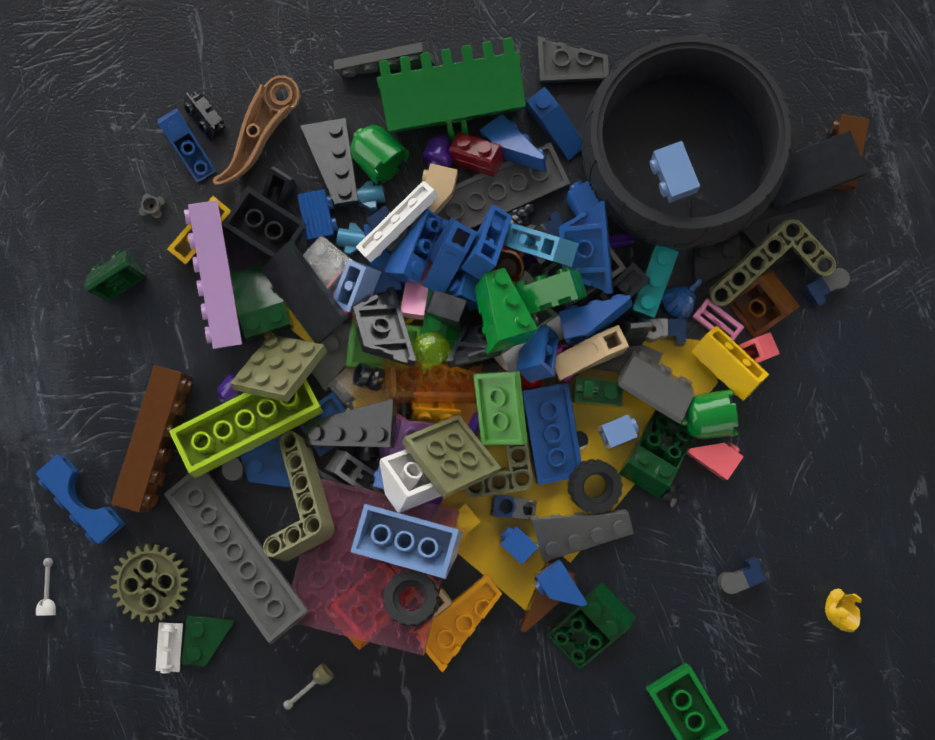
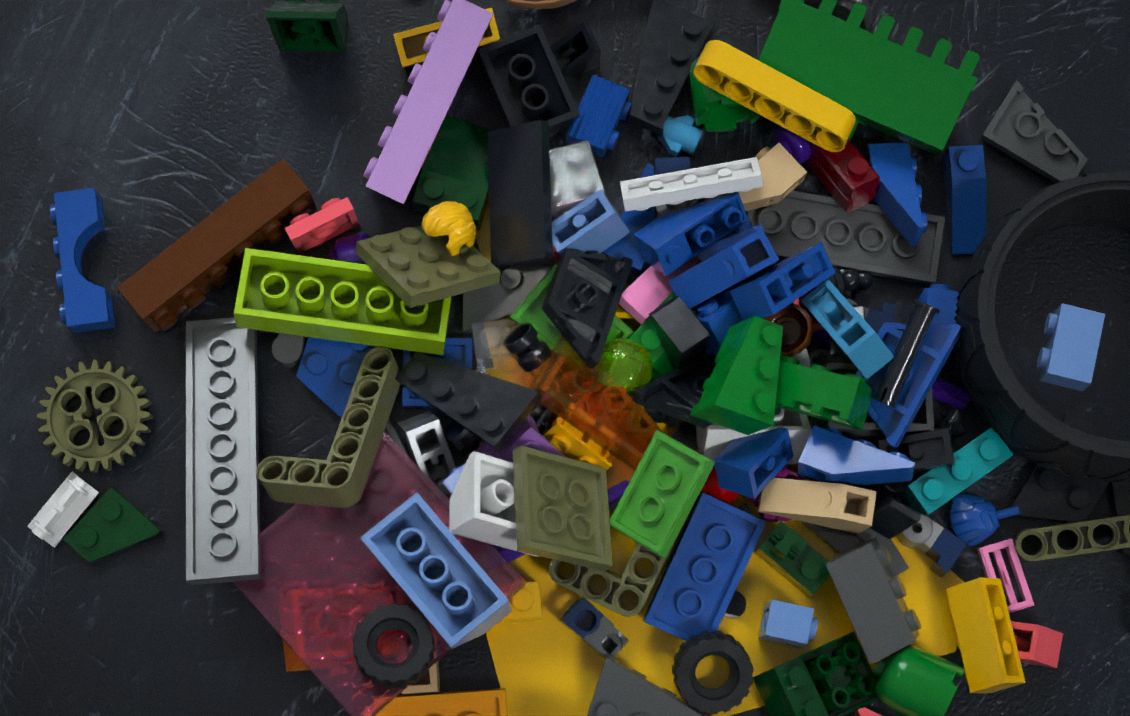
camera: 30 degrees right, 5 degrees down
(207, 380) = (323, 226): none -> coral plate
(277, 334) = (452, 220): none -> yellow hair
(321, 676) = (219, 672): hinge -> none
(349, 238) = (619, 168): dark azure piece -> none
(409, 138) = (774, 96): none -> yellow beam
(517, 544) = (568, 675): blue brick -> none
(583, 237) = (905, 353): none -> black pin
(763, 304) = (1078, 592): reddish brown slope -> none

